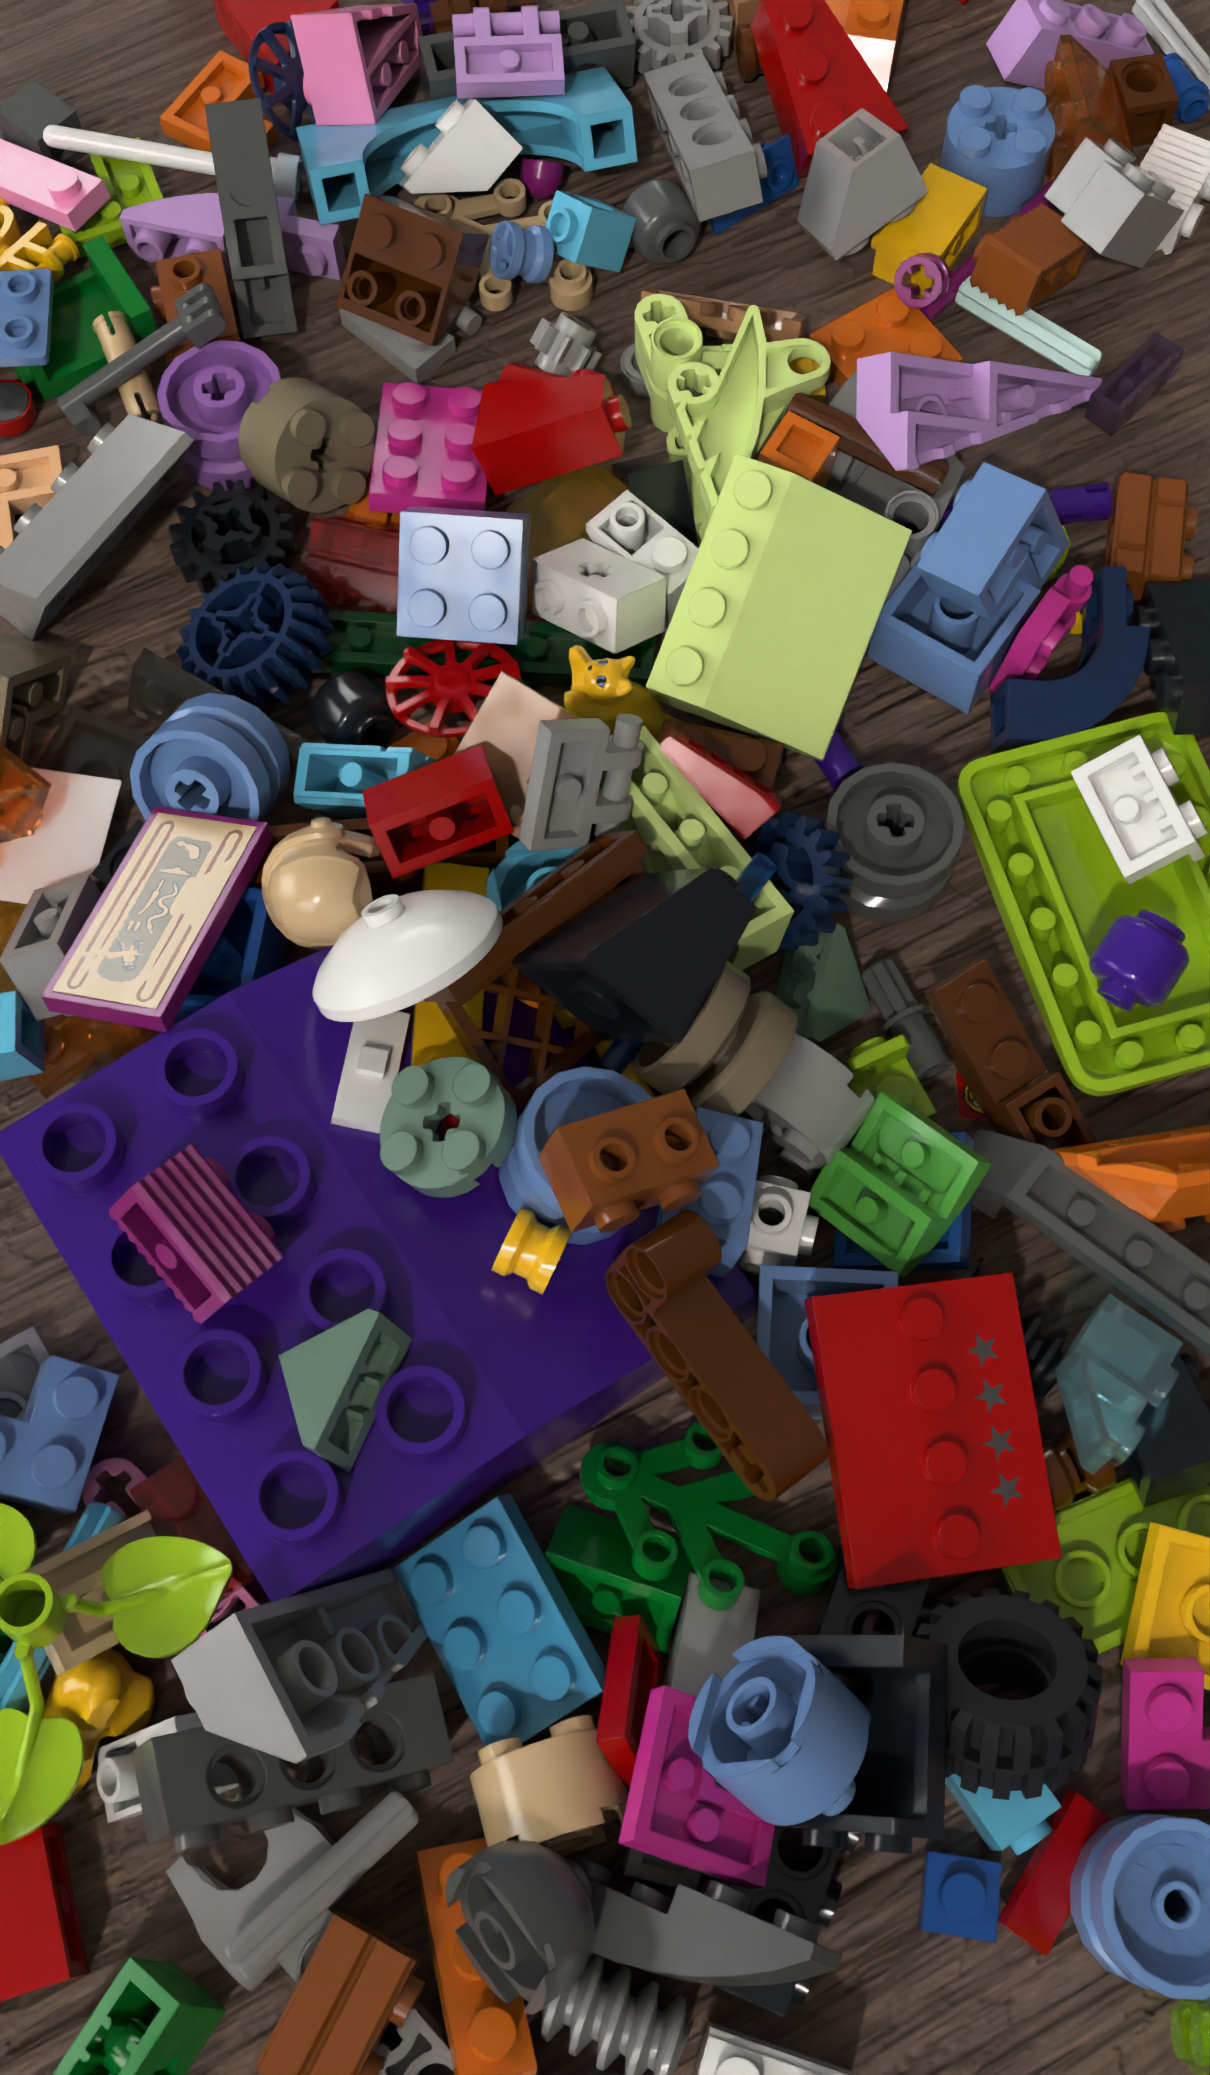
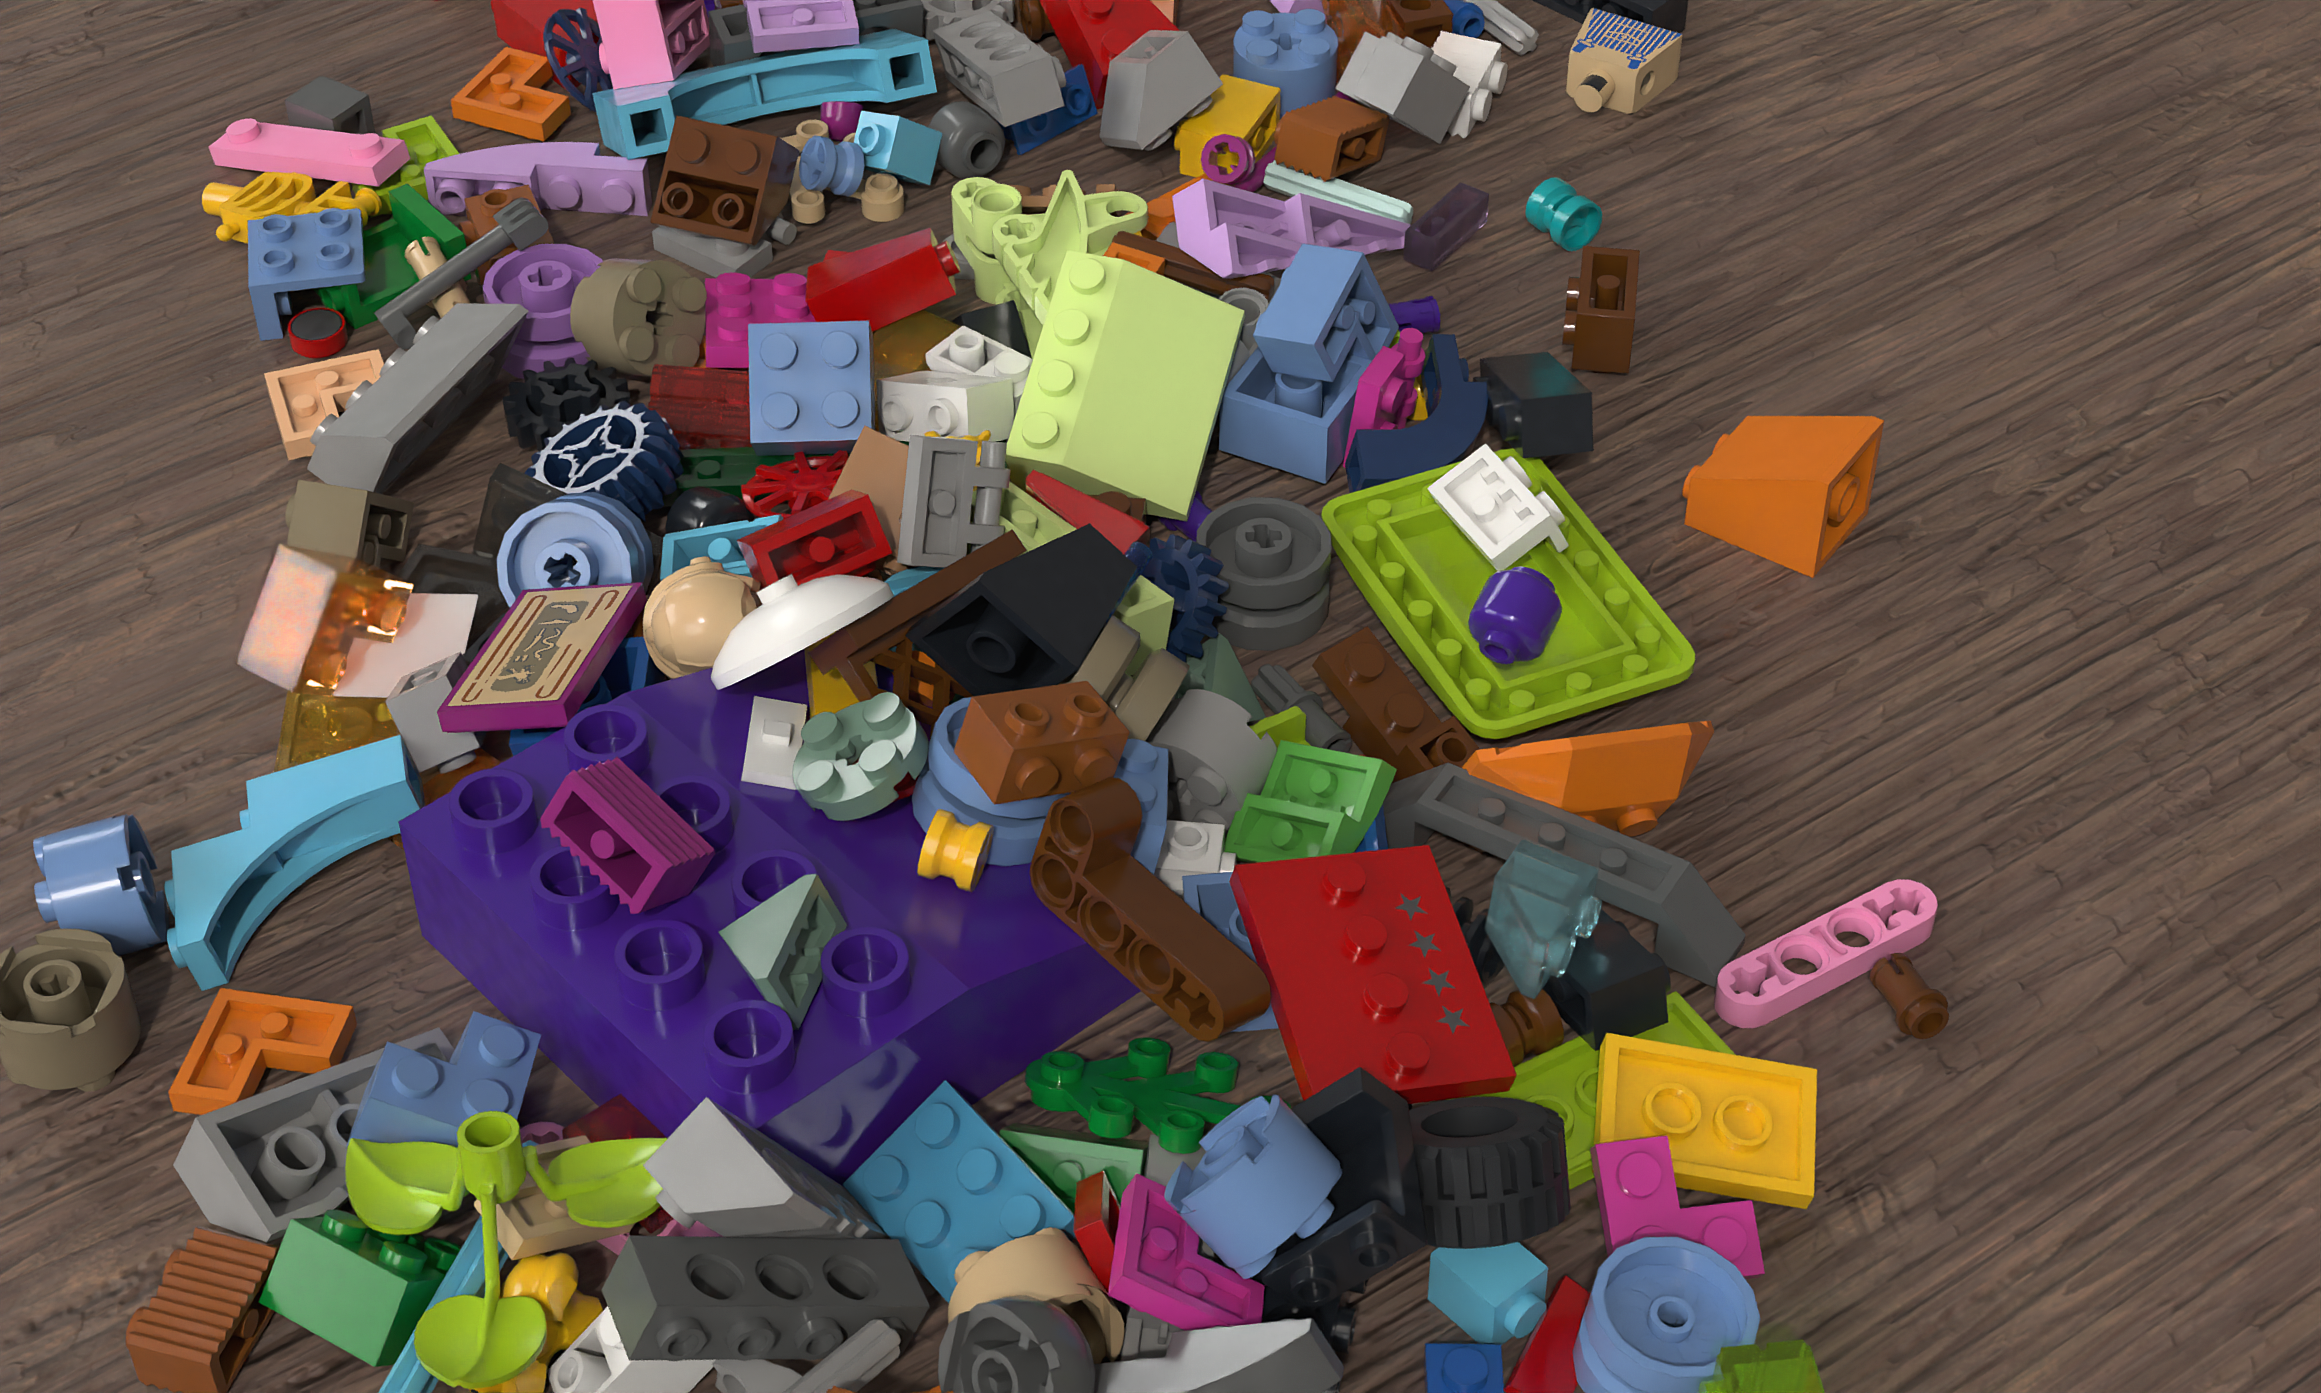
camera: 10 degrees left, 25 degrees down
(251, 217) = (561, 150): dark grey slope -> none
(285, 168) = (582, 129): white piece -> none
(465, 154) = (769, 97): white slope -> none
(565, 345) = (880, 227): light grey gear -> none
(1150, 531) = (1481, 320): dark orange brick -> none

